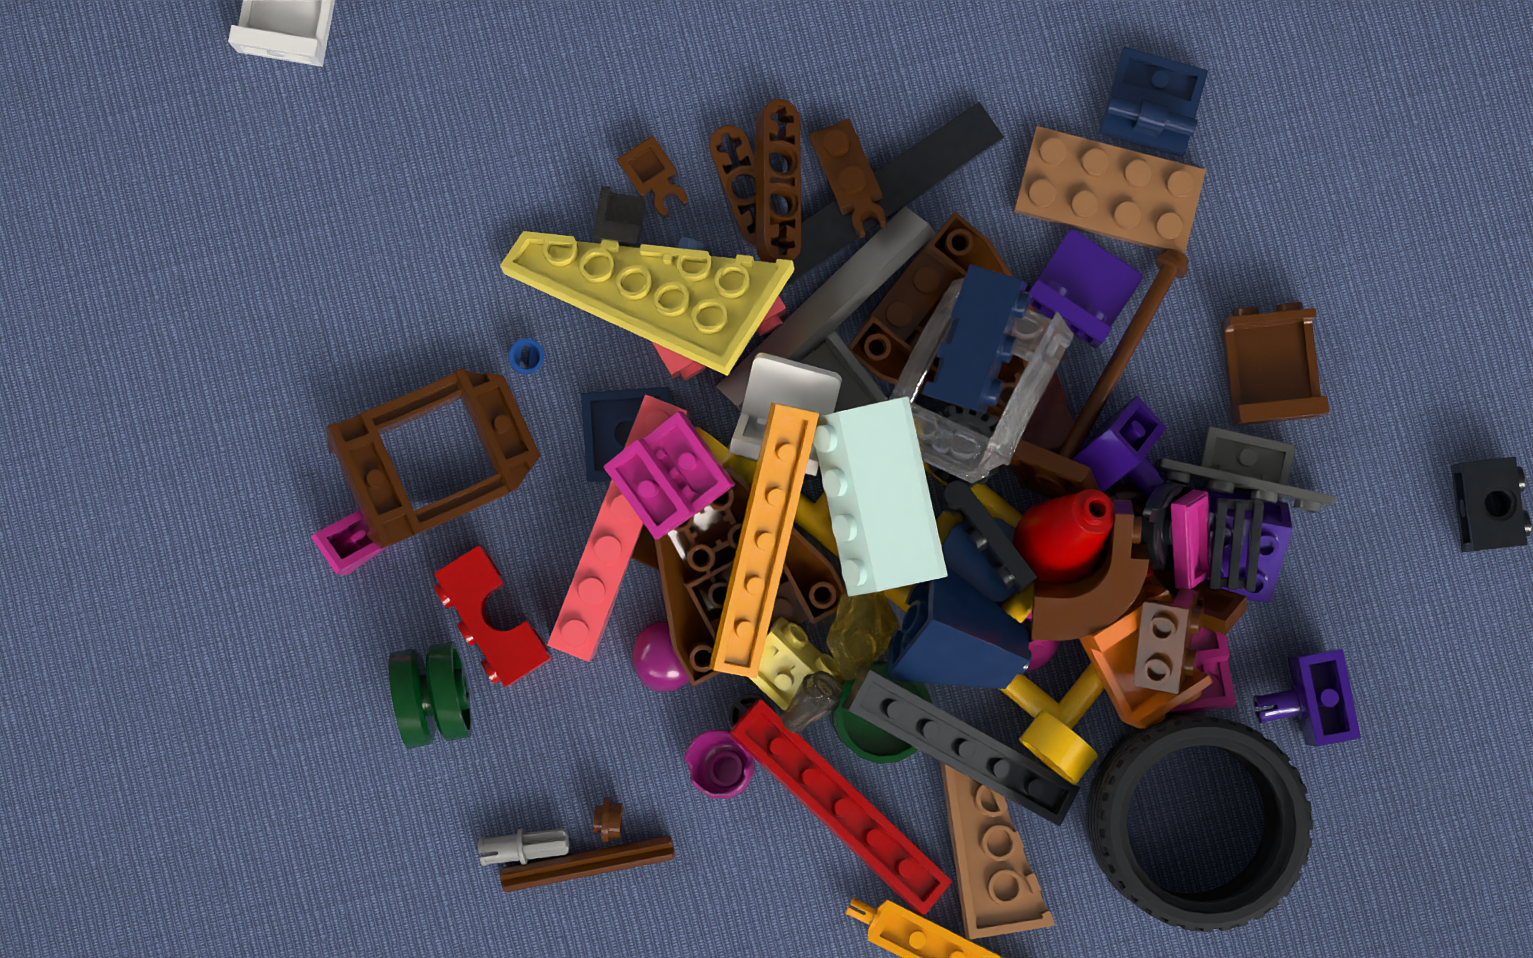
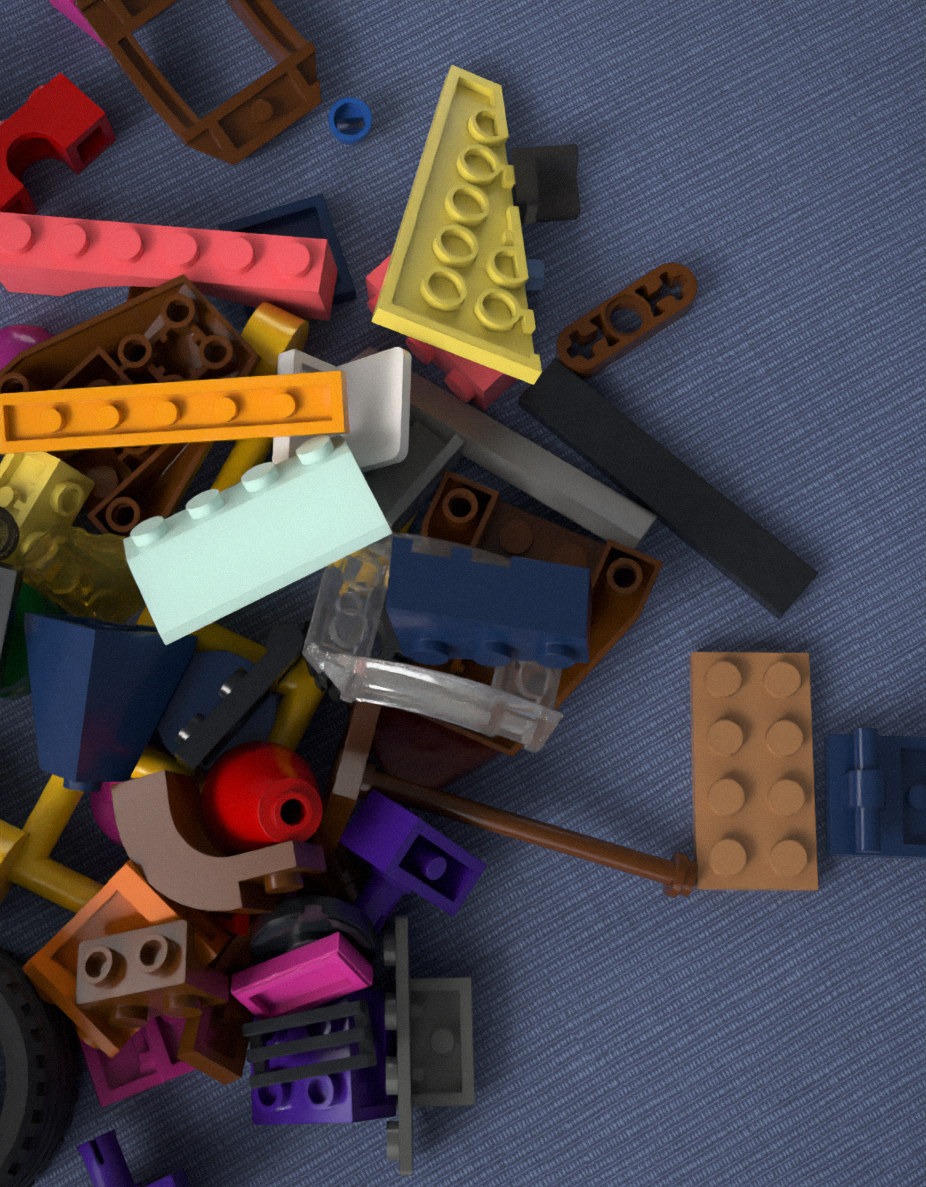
camera: 75 degrees right, 10 degrees down
(650, 172) = (611, 207): reddish brown plate -> none
(669, 475) = (226, 280): dark pink slope -> none
(773, 182) = (640, 350): reddish brown beam -> none
(849, 173) = (676, 434): reddish brown plate -> none
(1084, 287) = (613, 765): dark purple bracket -> none
(1272, 365) = (579, 1048): reddish brown panel -> none

